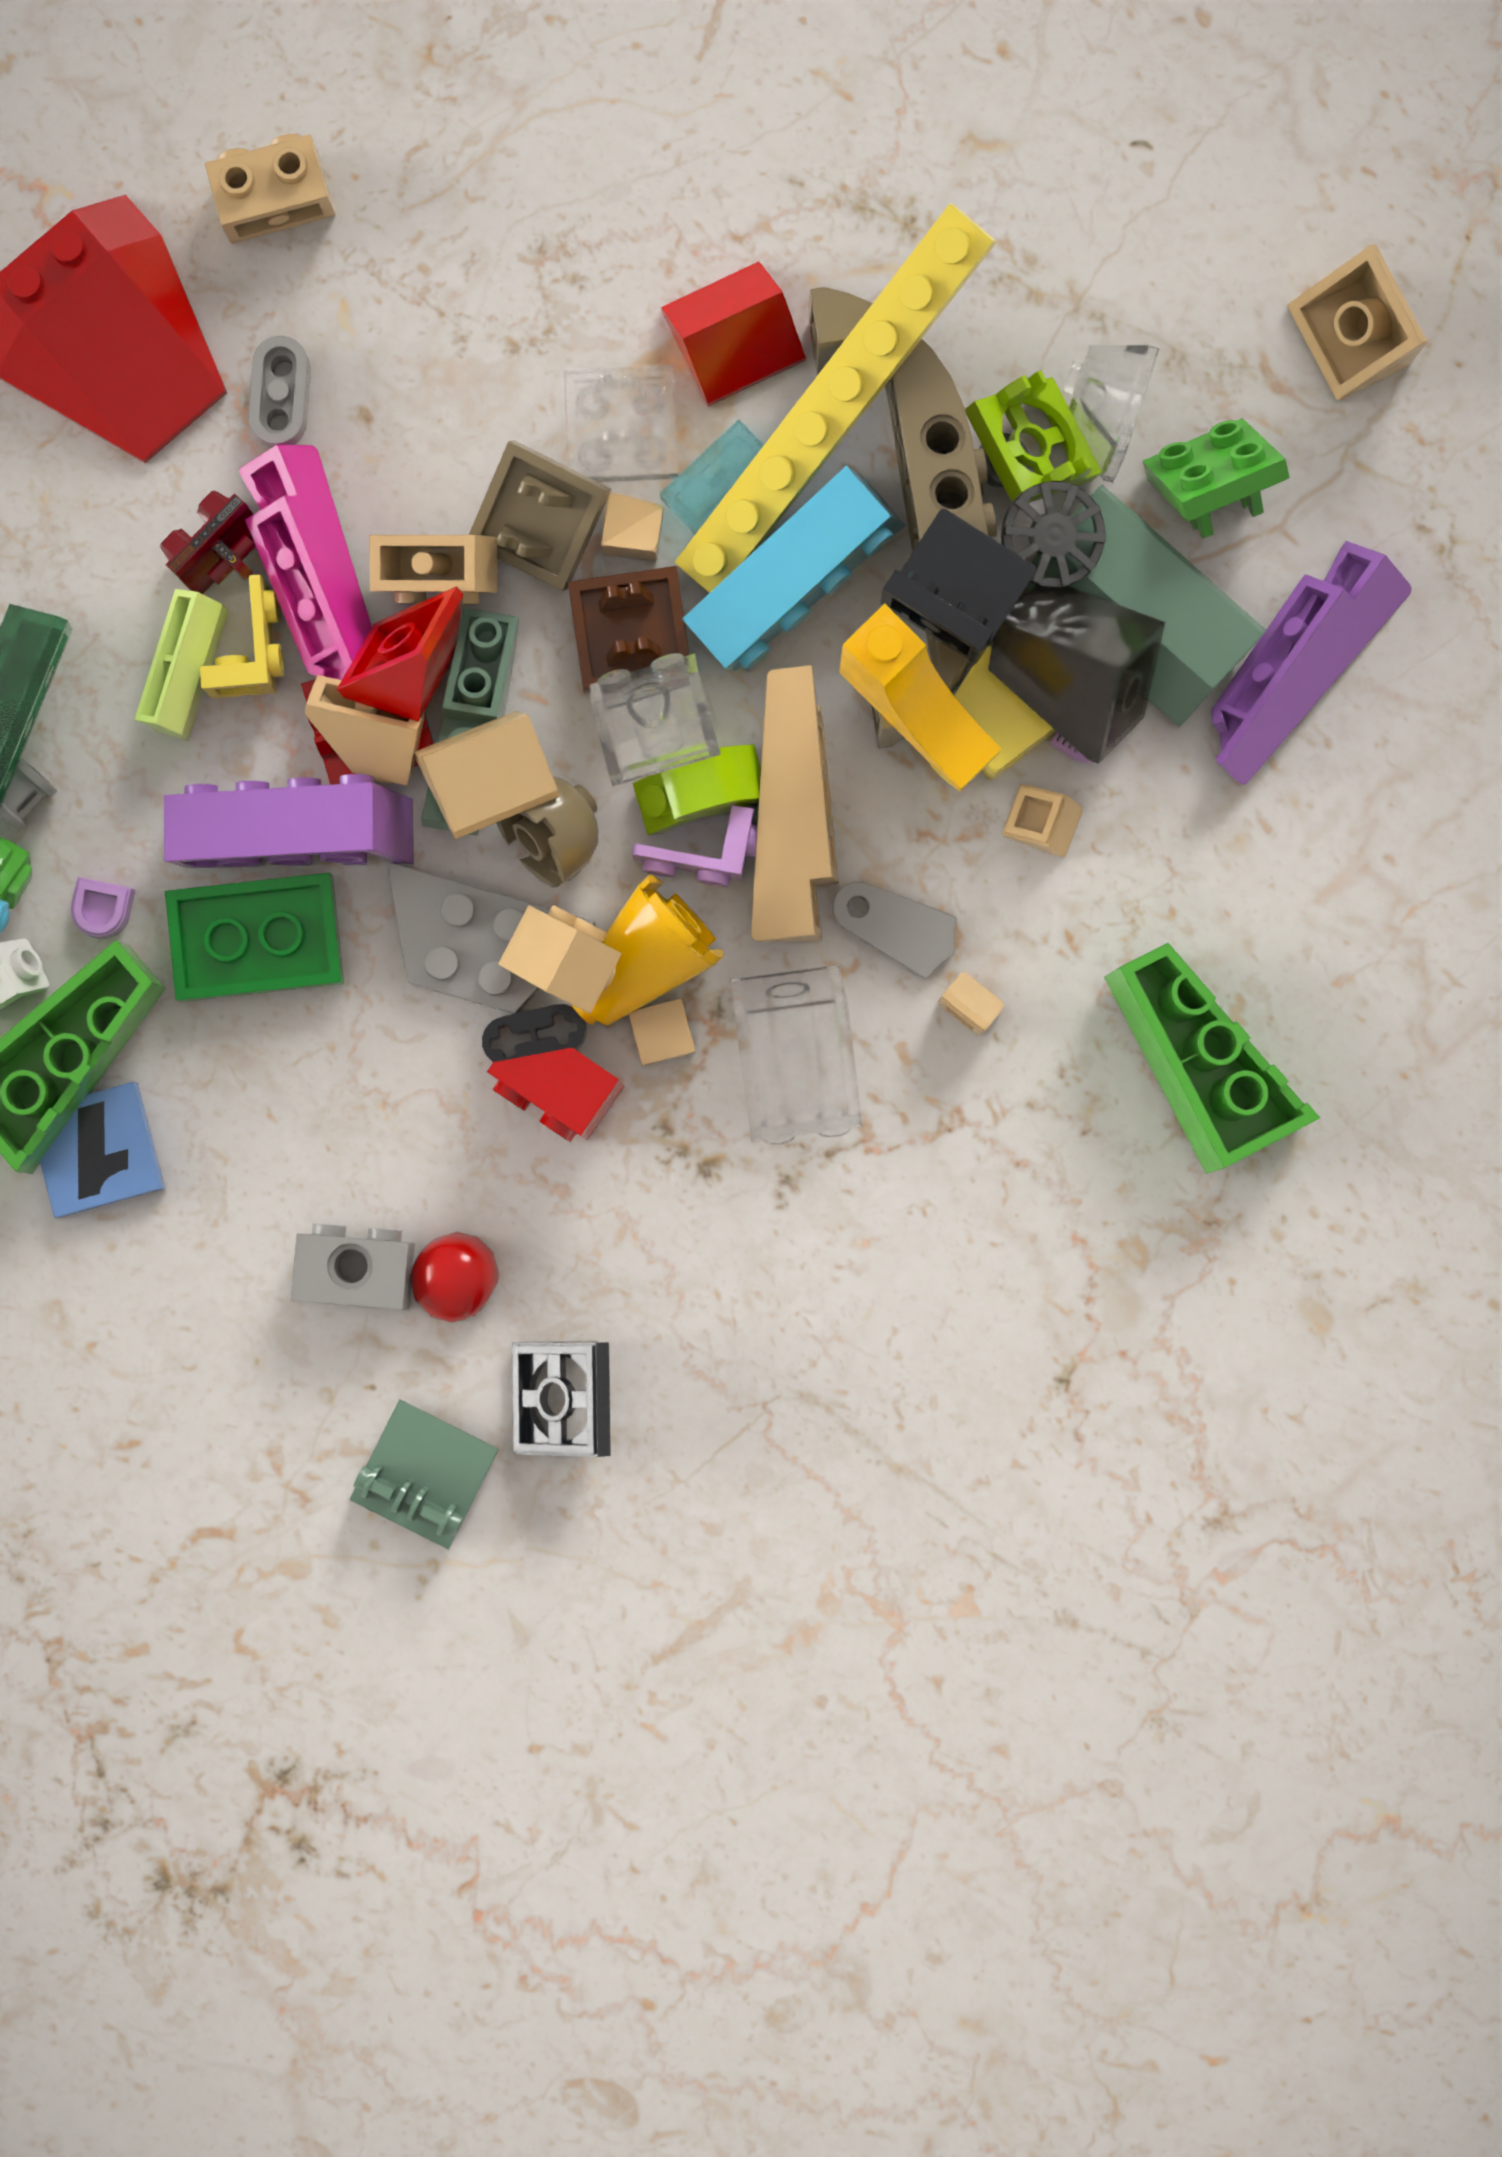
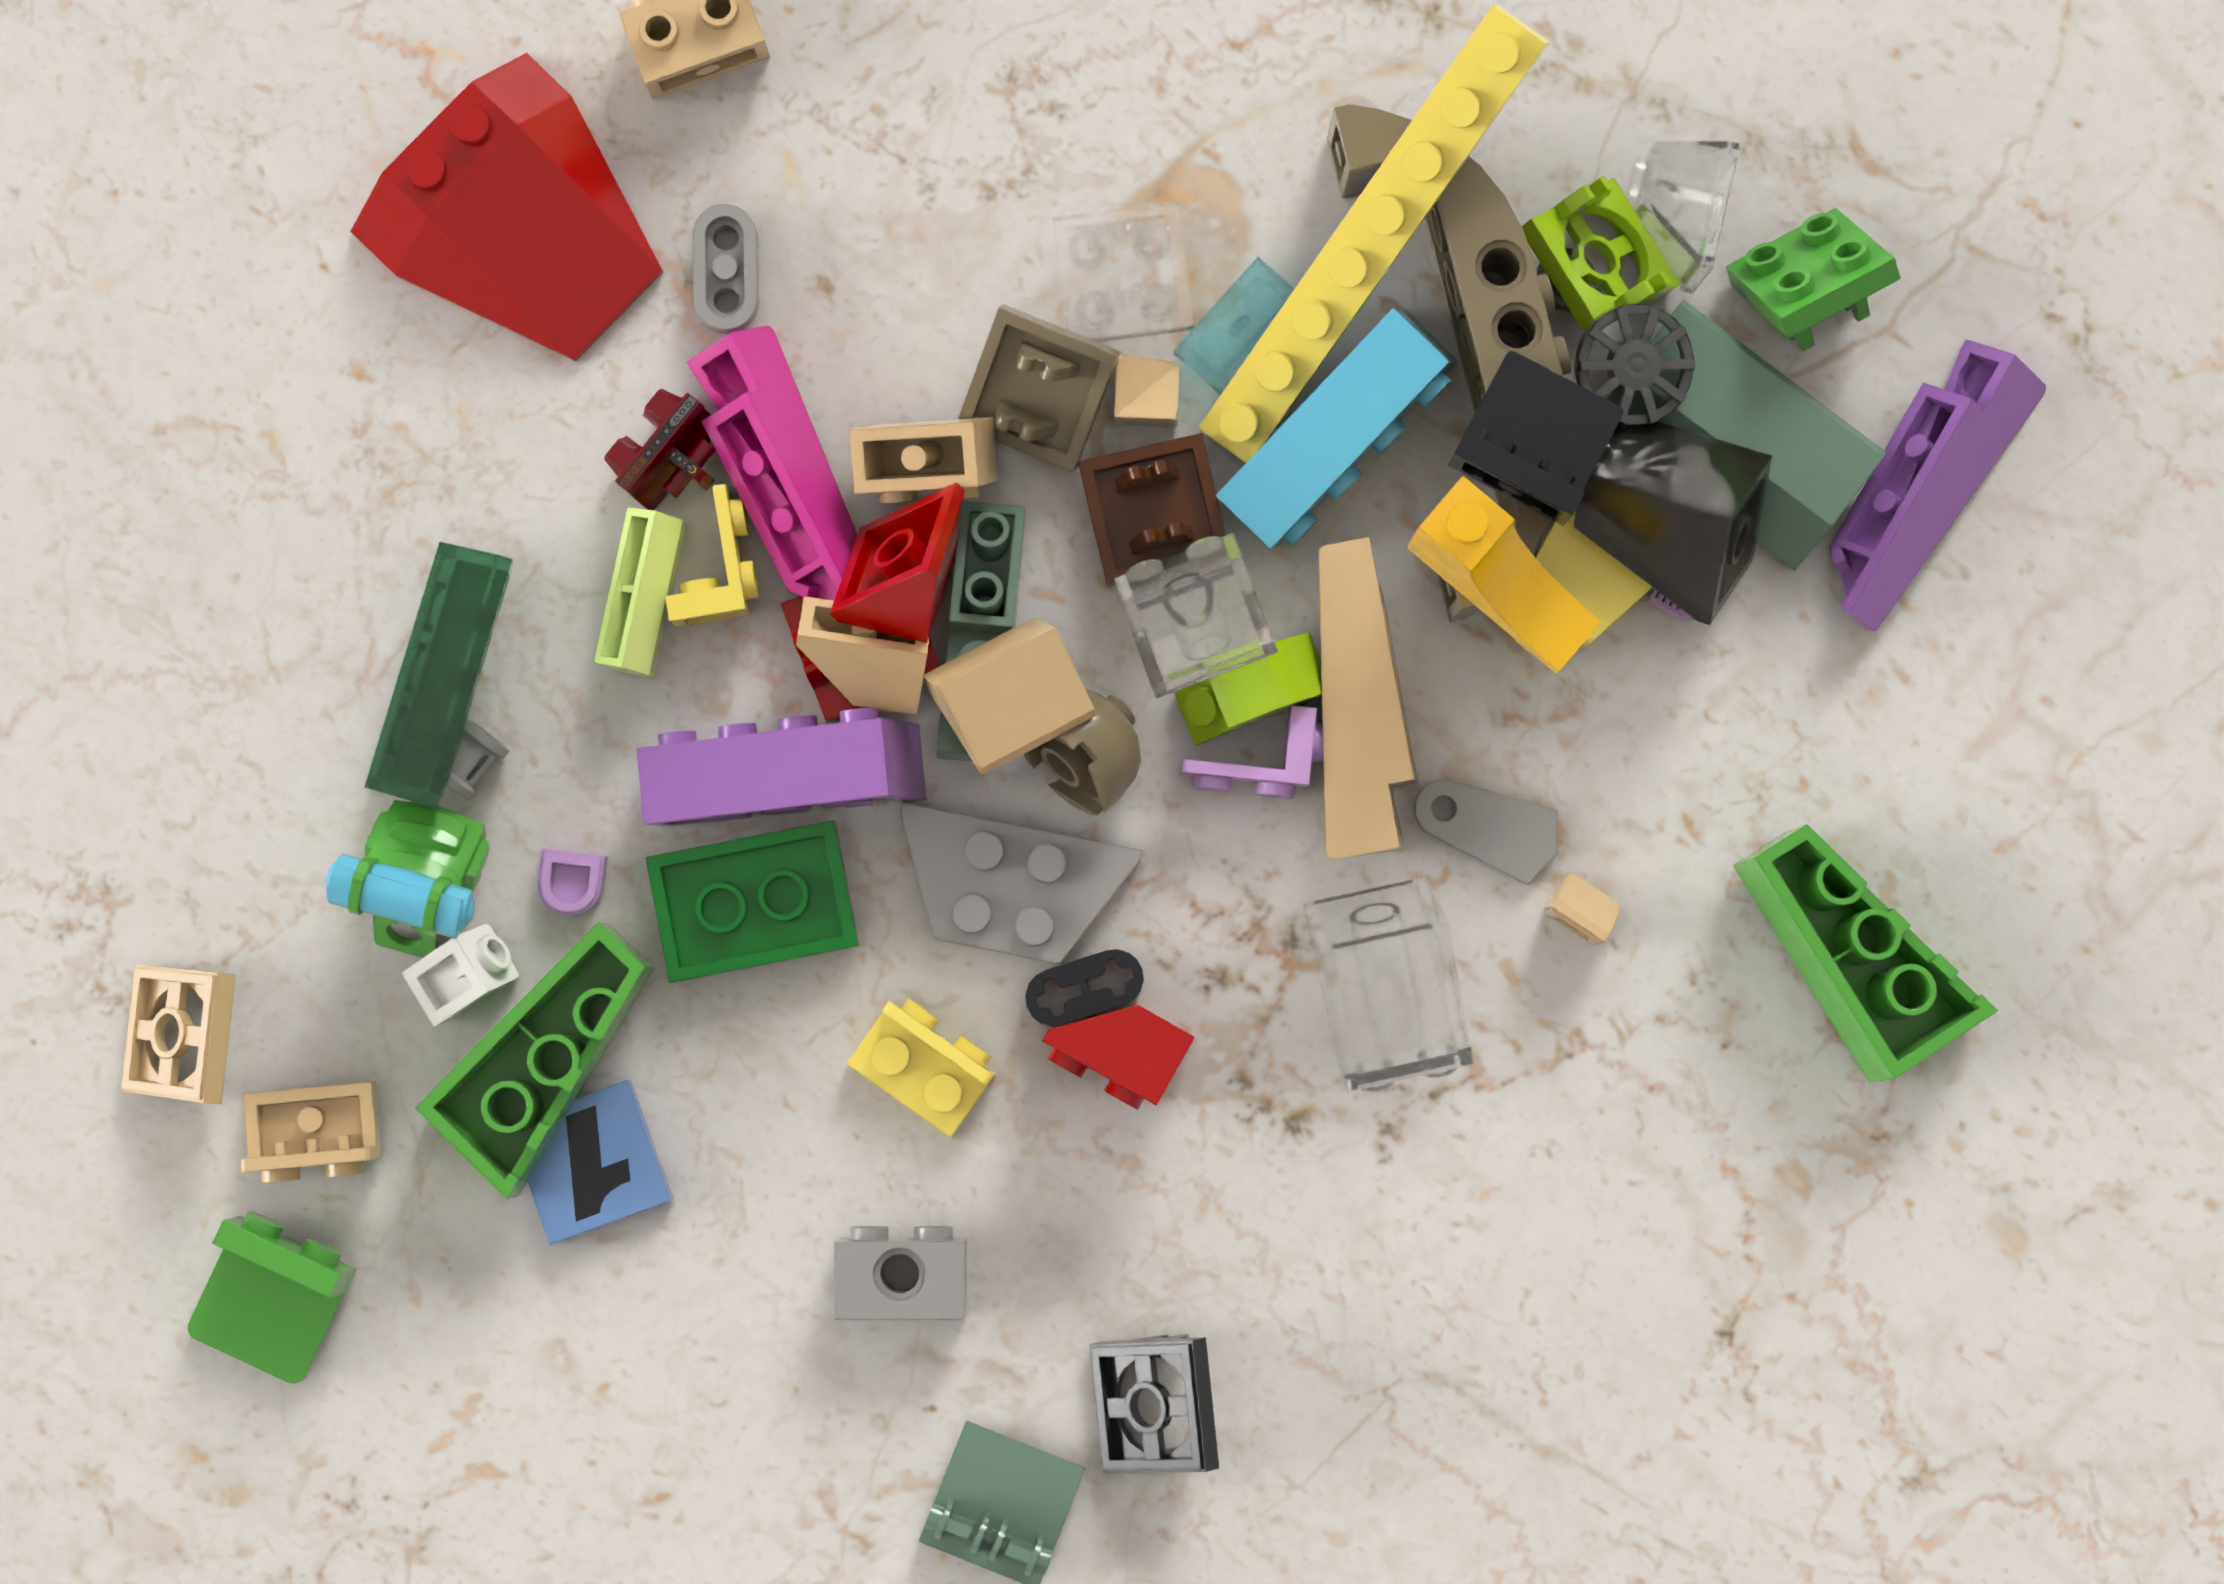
camera: 10 degrees left, 0 degrees up
(389, 1092) = (922, 1066): none -> light yellow bracket
(454, 1277) = (1016, 1274): red hair -> none
(561, 956) = (1113, 898): tan brick -> none
(660, 949) = (1203, 887): yellow cone -> none
(662, 1032) = (1231, 971): tan tile -> none
(735, 332) = (1243, 155): red slope -> none
(1043, 820) = (1646, 689): tan slope -> none
(1358, 324) = (1960, 90): tan slope -> none

